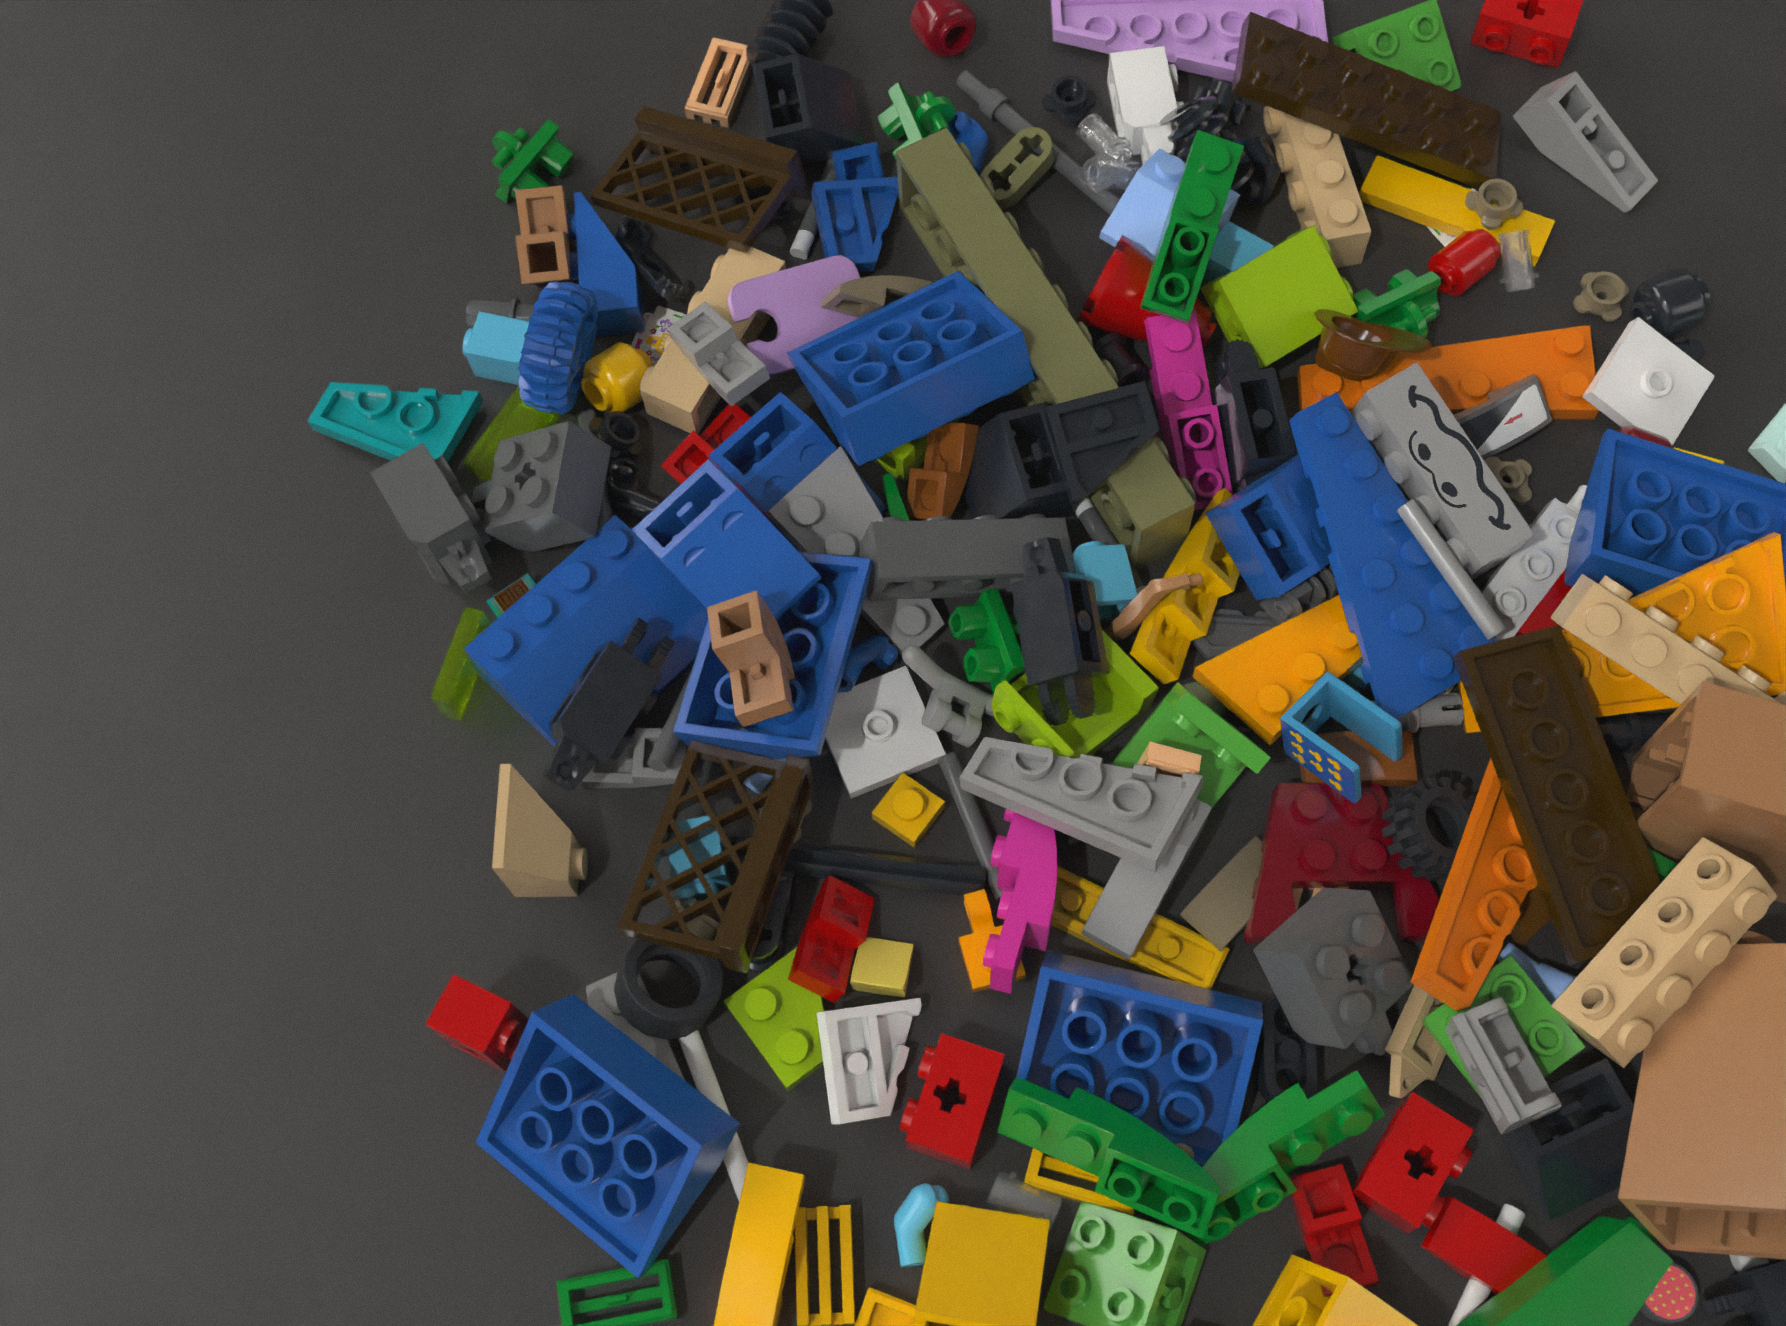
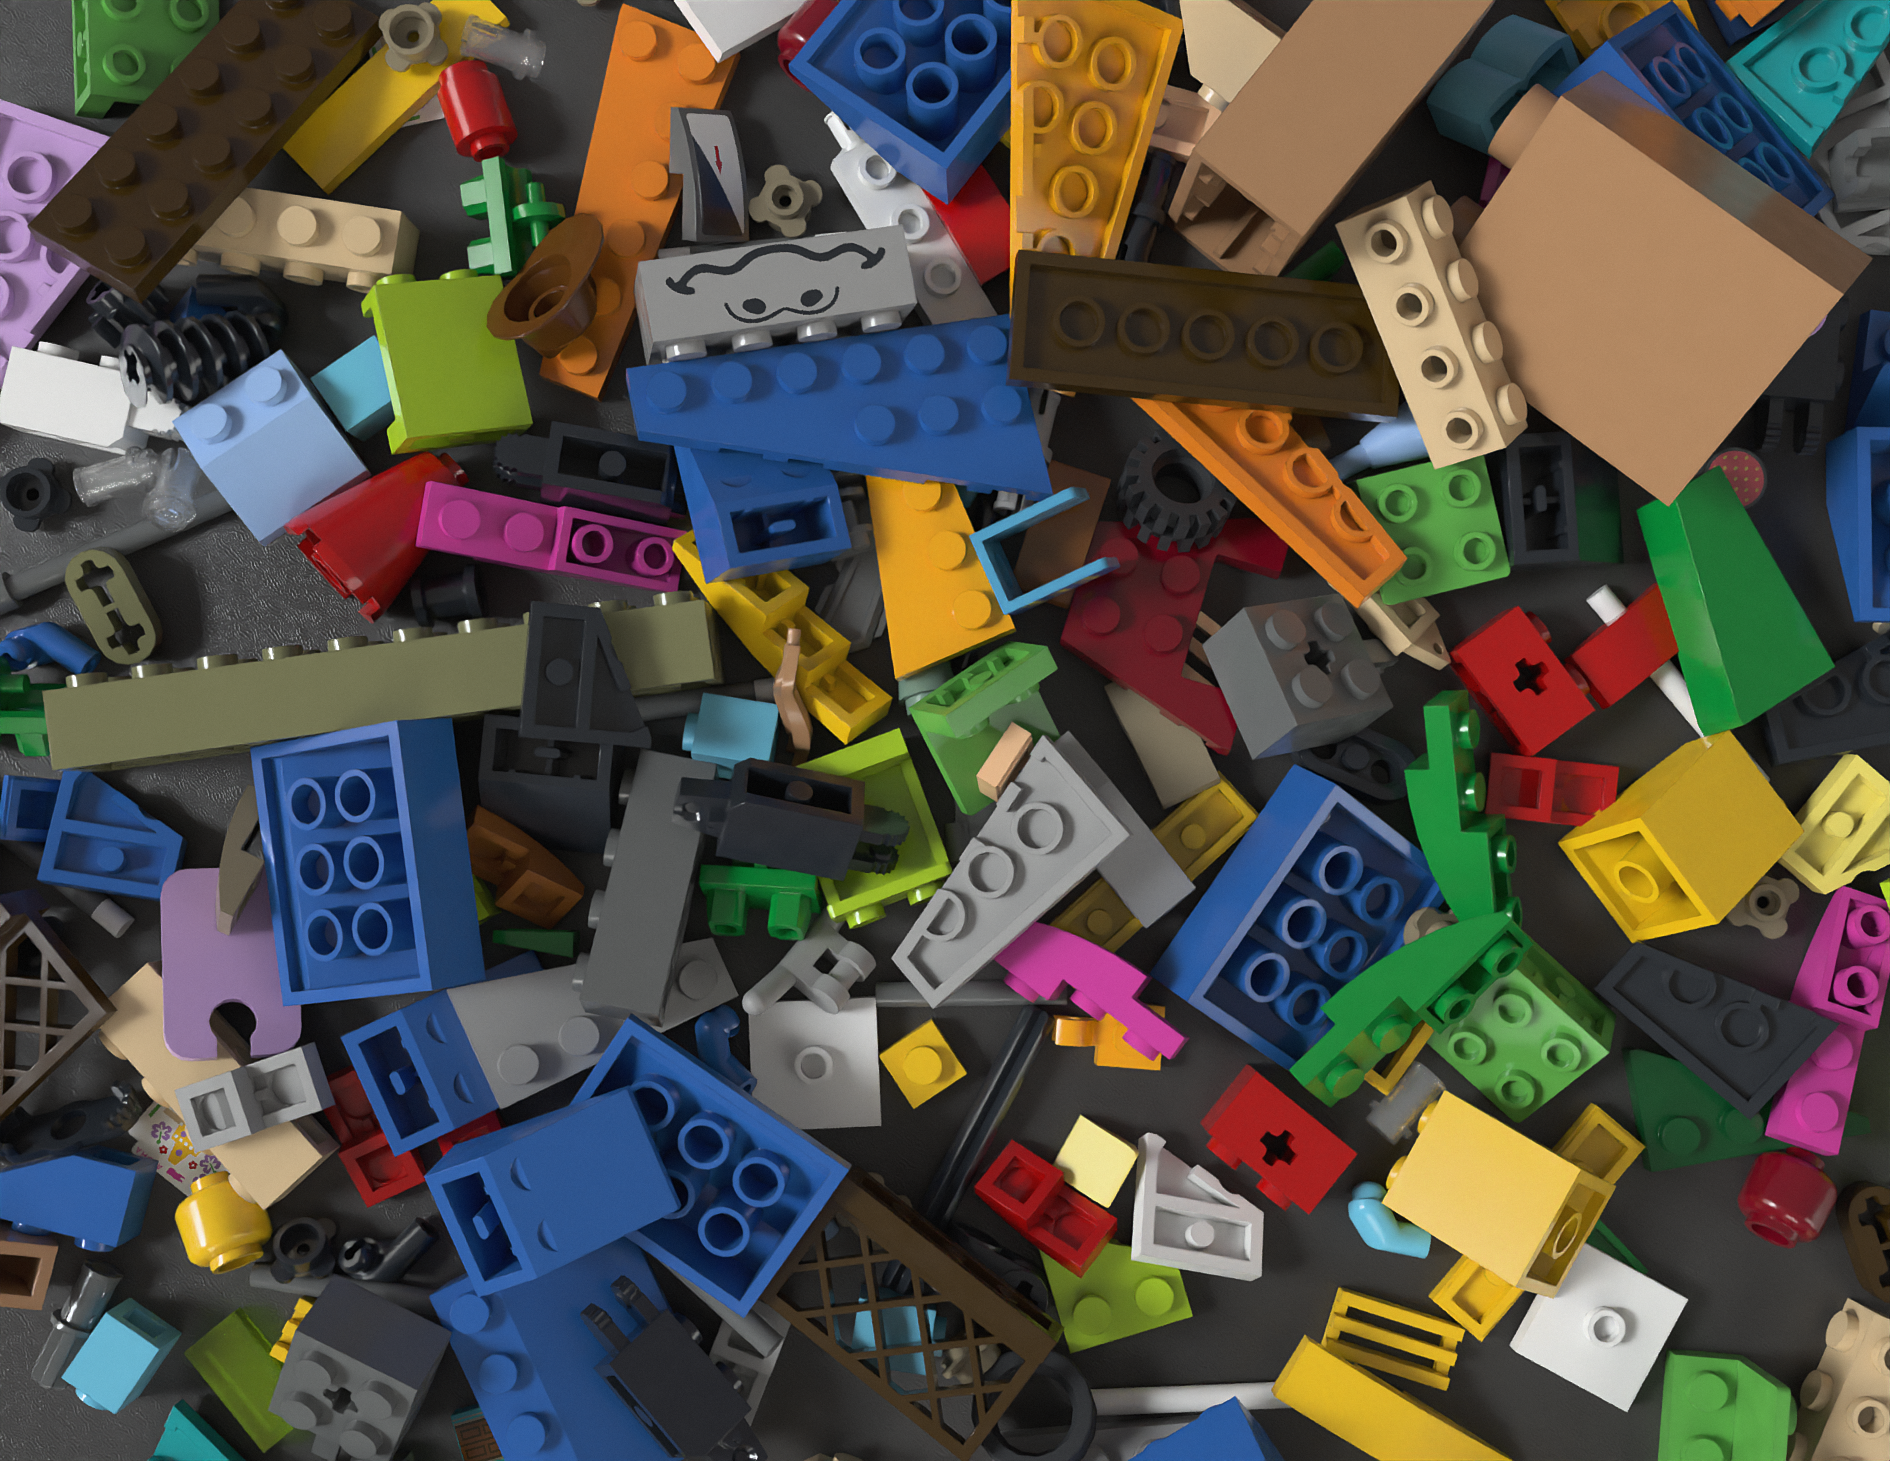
camera: 80 degrees left, 20 degrees up
(557, 347) = (162, 1297): blue gear -> none
(754, 654) = (710, 1201): medium nougat brick -> none
(1191, 227) = (321, 441): green slope -> none
(1451, 569) = (898, 337): light grey bar -> none
(1501, 1066) = (1482, 551): light grey hinge -> none
(1647, 642) = (1102, 153): tan brick -> none

